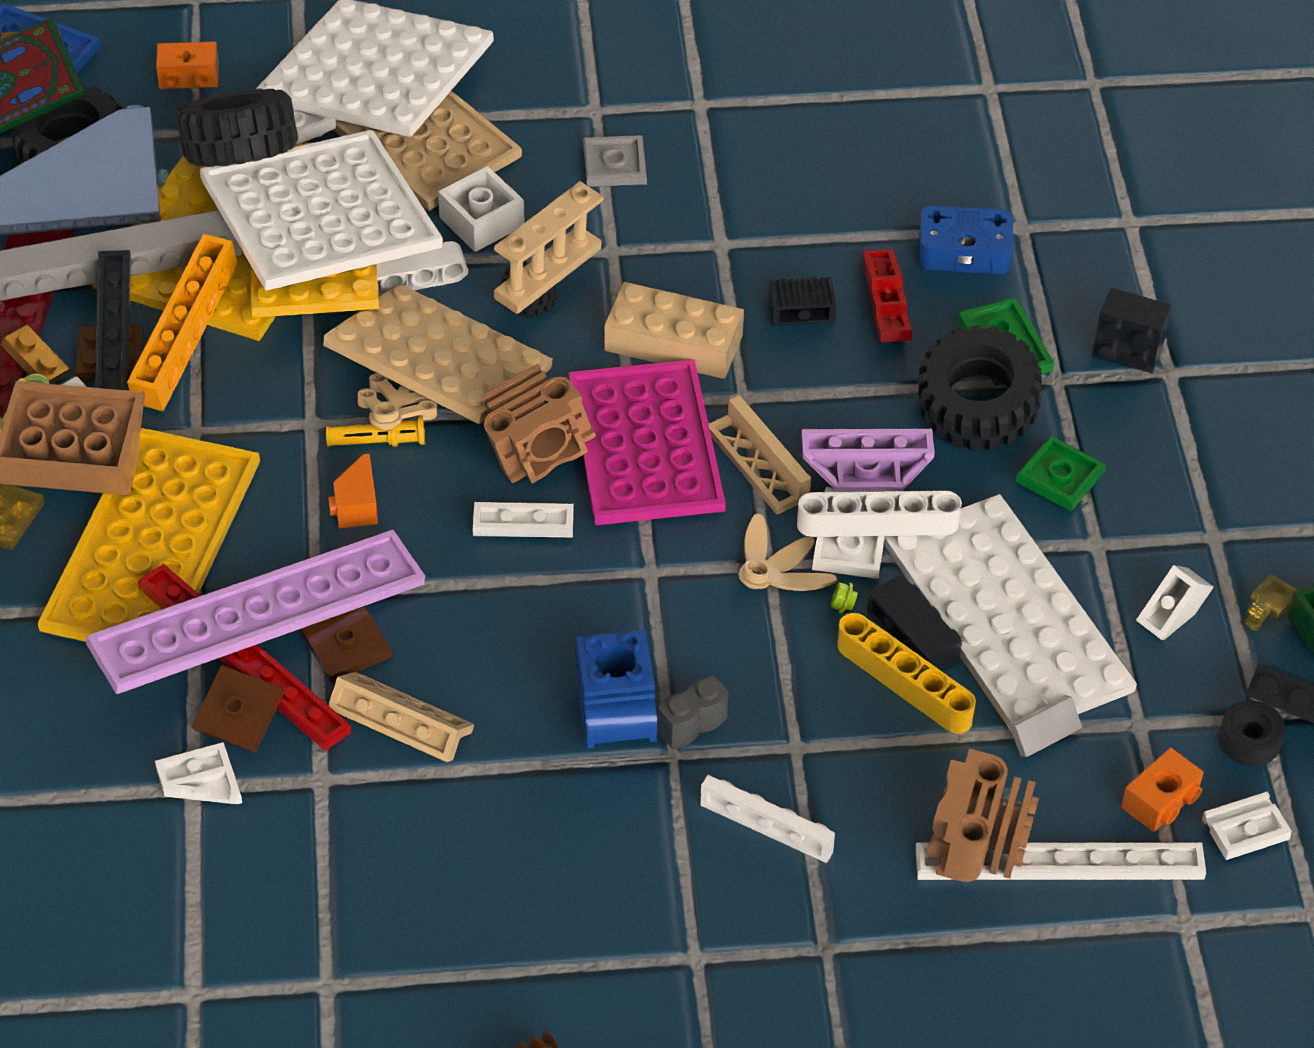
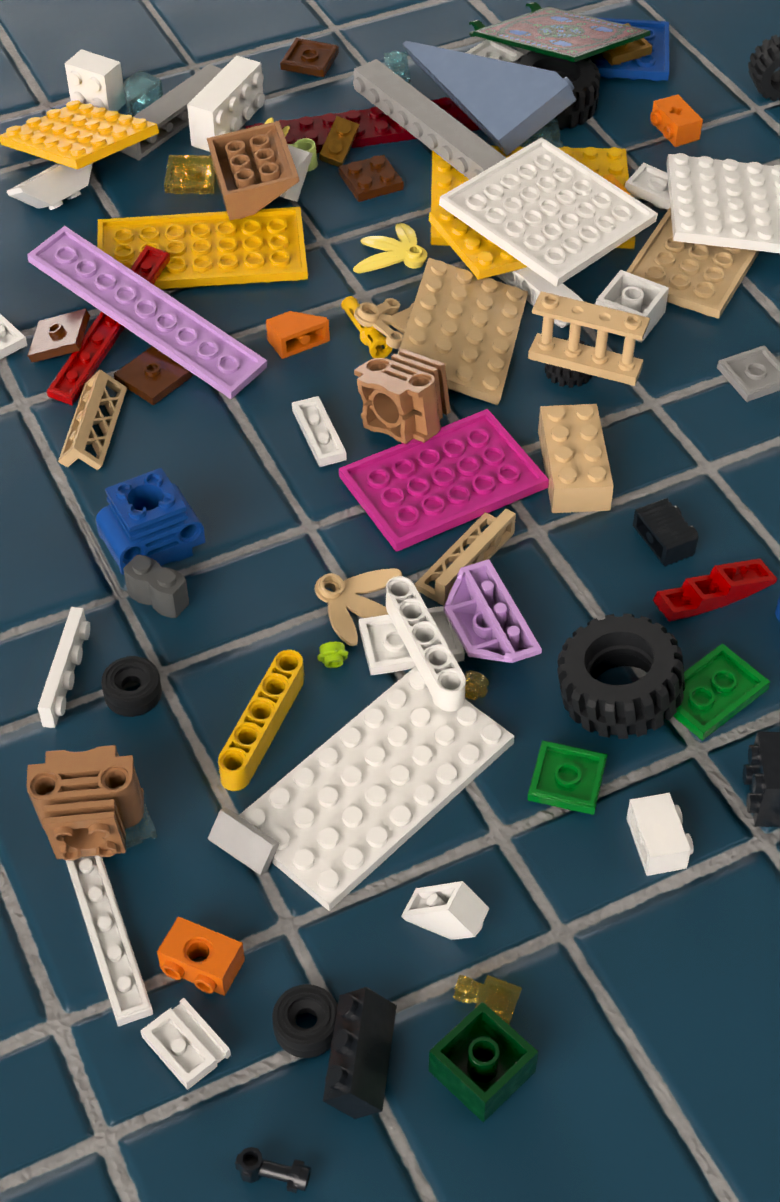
camera: 70 degrees right, 0 degrees up
(113, 320) = (371, 164): black tile -> none
(183, 321) = (396, 188): light orange brick -> none
(237, 127) = (596, 140): black tyre -> none
(270, 361) = (406, 251): none -> light yellow plant
(815, 786) = (128, 670): none -> black tyre
(910, 619) = (319, 711): black brick -> none
(1147, 432) = (659, 834): none -> white brick

